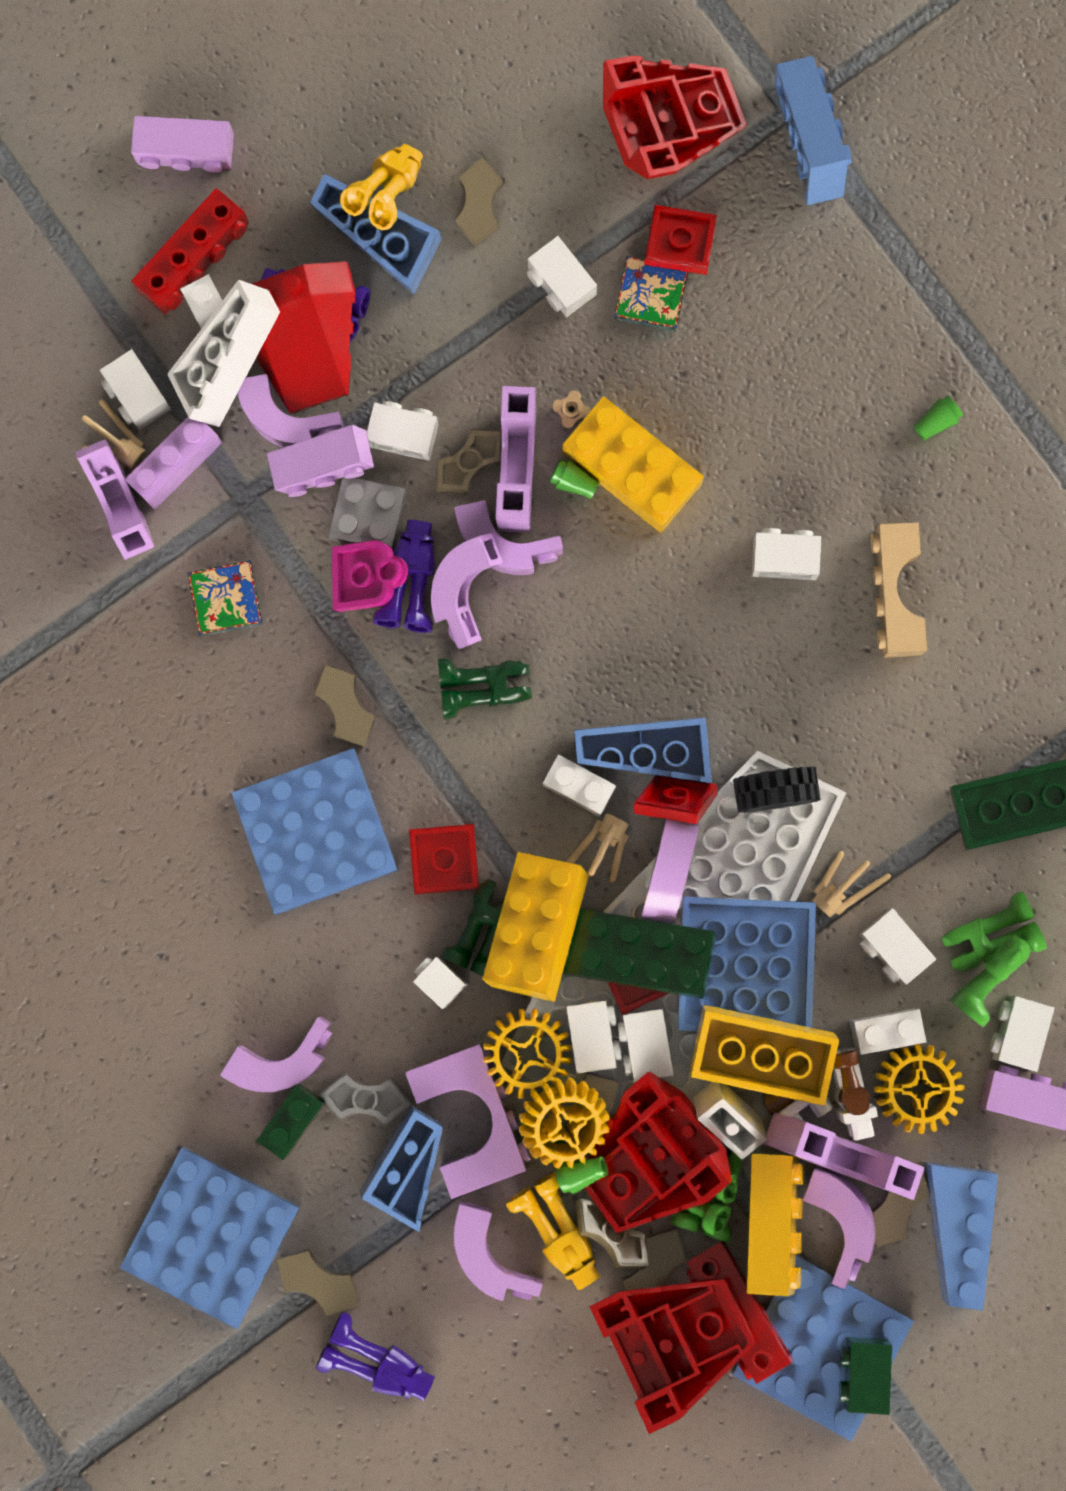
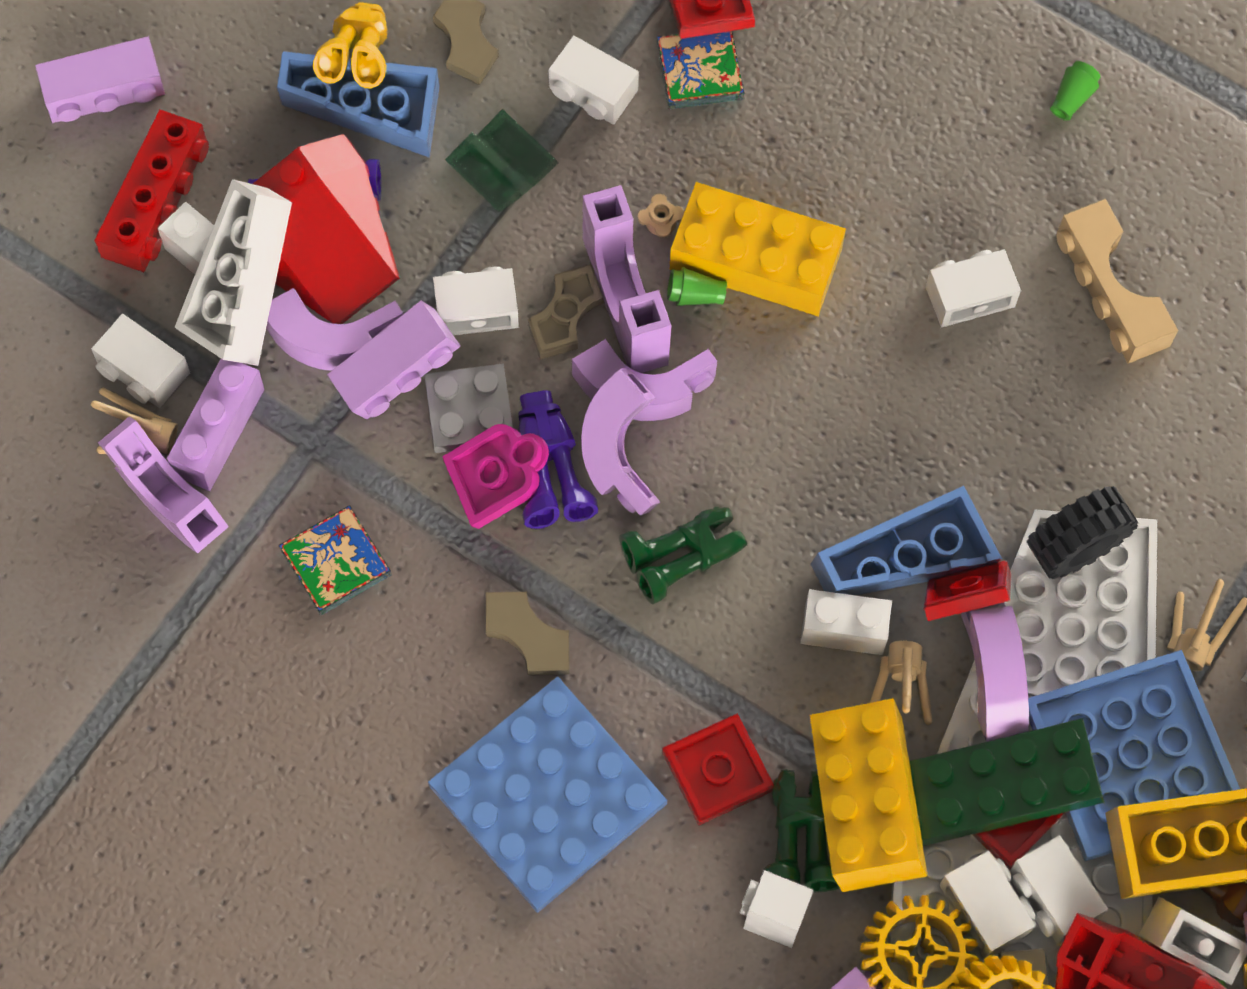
camera: 30 degrees left, 15 degrees down
(466, 319) = (501, 161): none -> clear green slope

